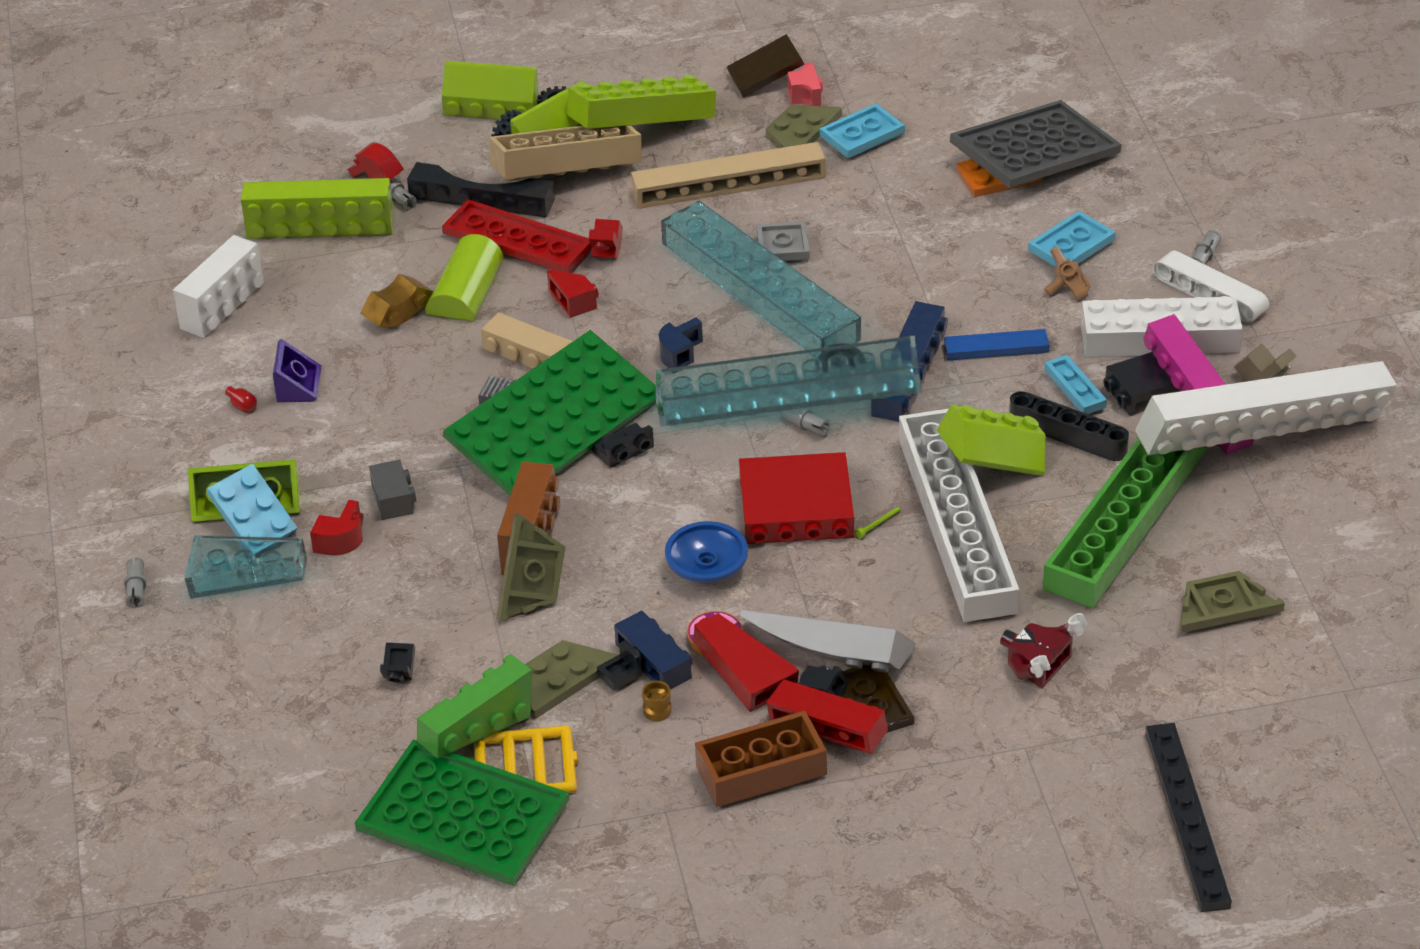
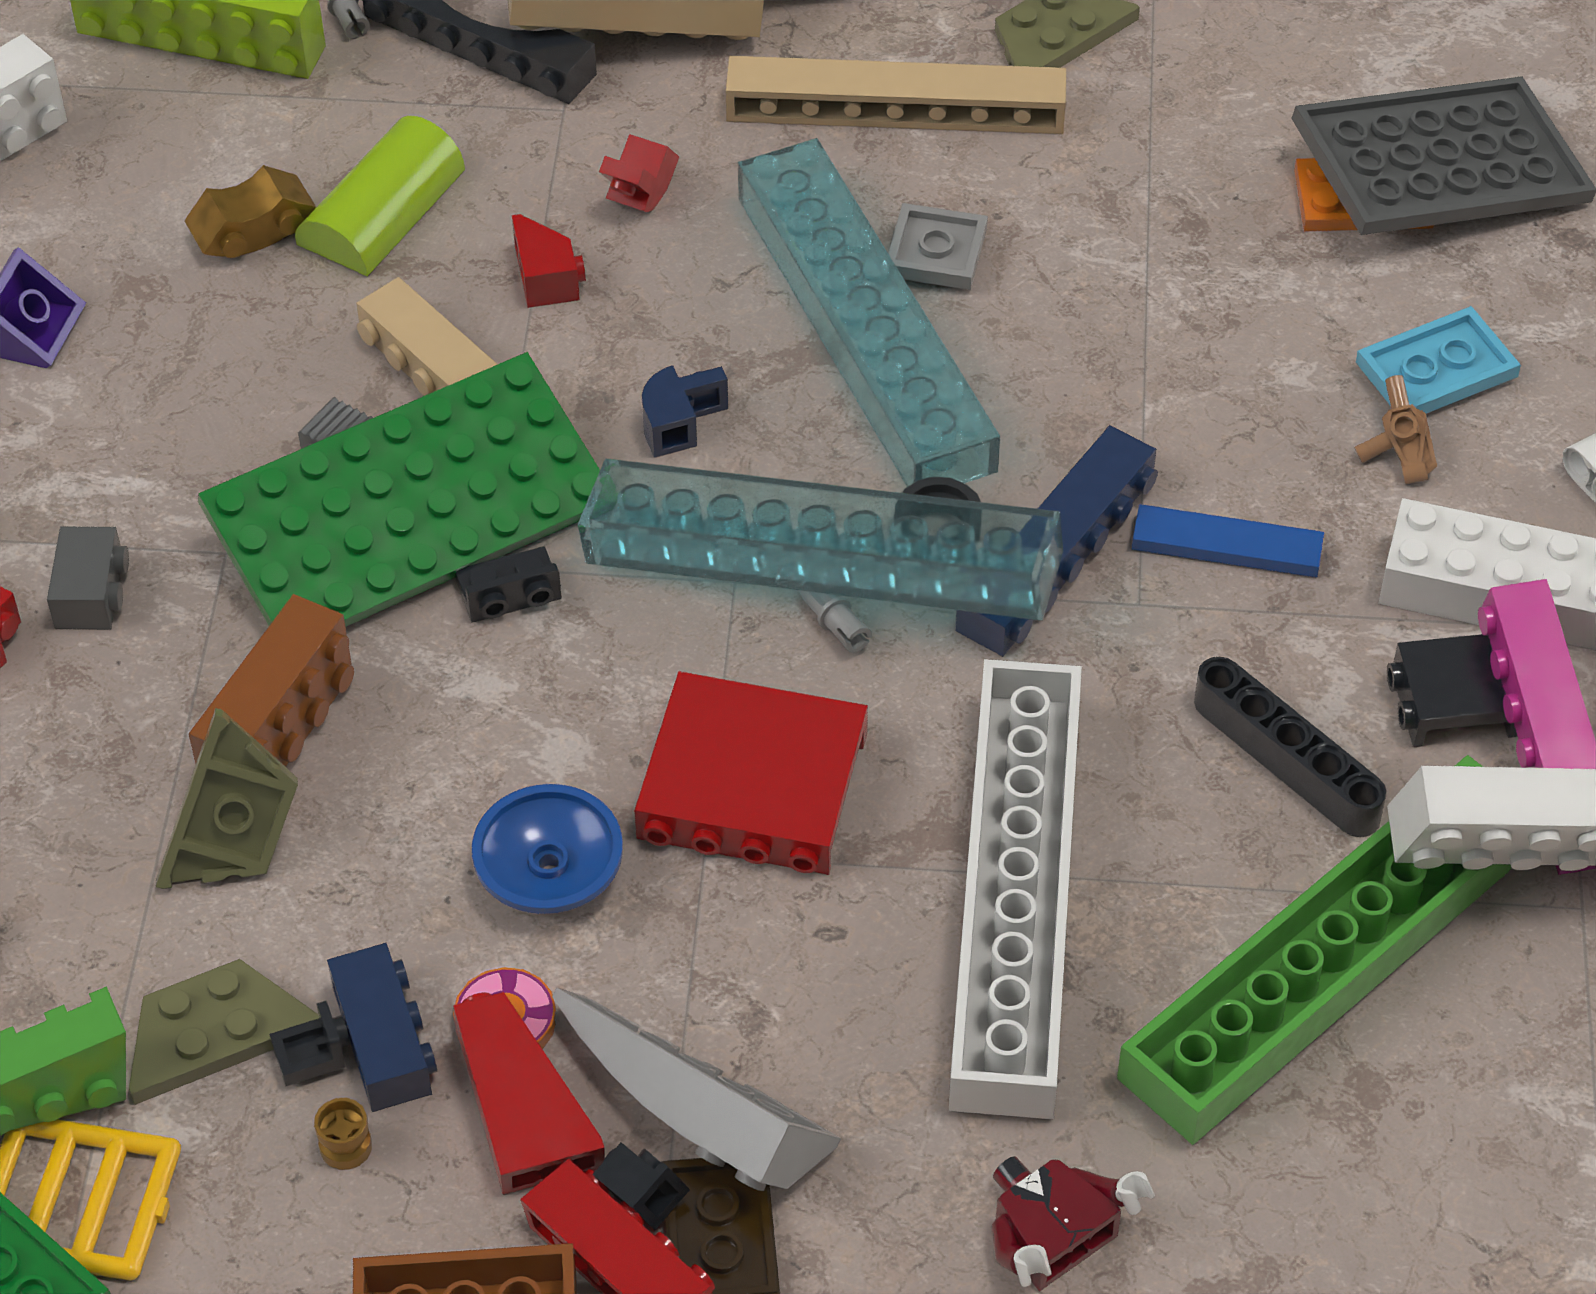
camera: 15 degrees right, 10 degrees up
(519, 236) = (501, 132): red plate -> none
(861, 532) = (841, 870): lime piece -> none
(862, 130) = (1156, 59): medium azure plate -> none
(994, 439) = (1132, 755): lime slope -> none
(1075, 384) = (1334, 662): medium azure plate -> none
(1225, 600) = (1437, 1198): olive wing -> none

